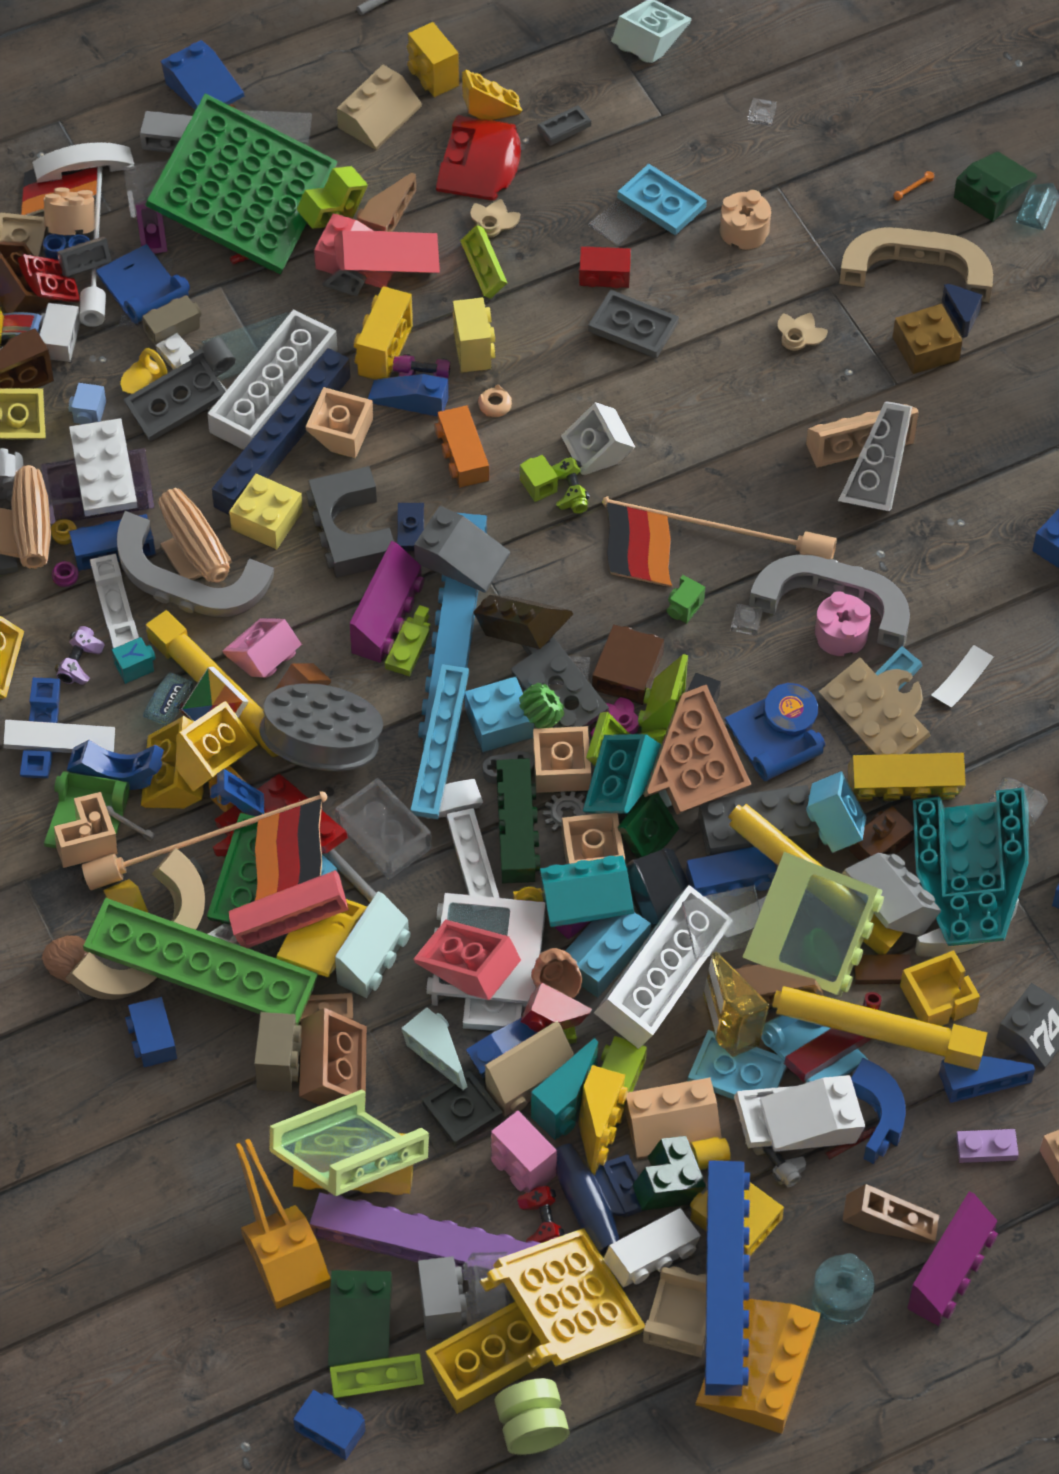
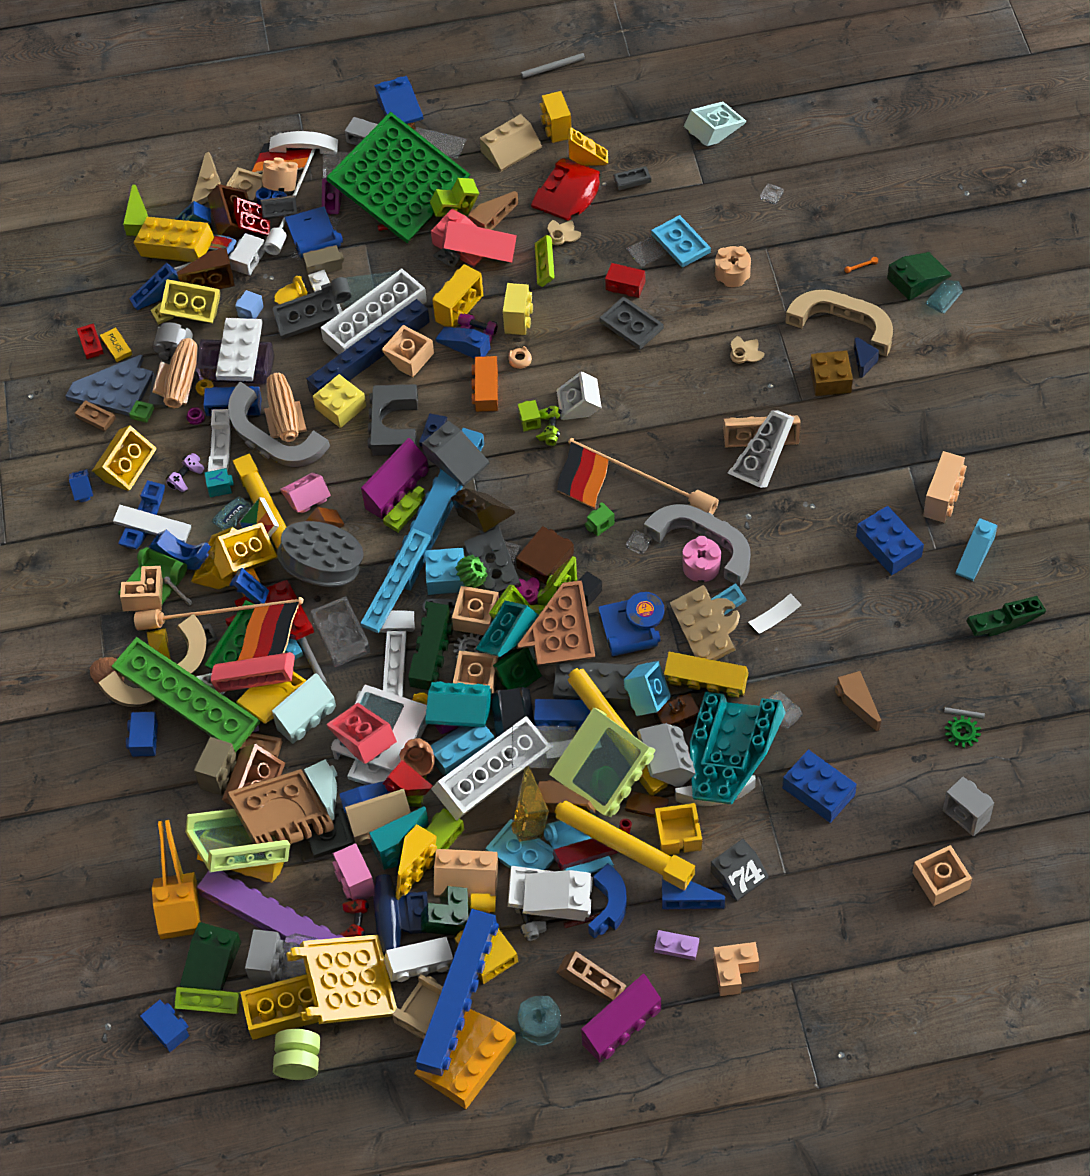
camera: 20 degrees right, 0 degrees up
(391, 1088) = (279, 808): none -> medium nougat hinge

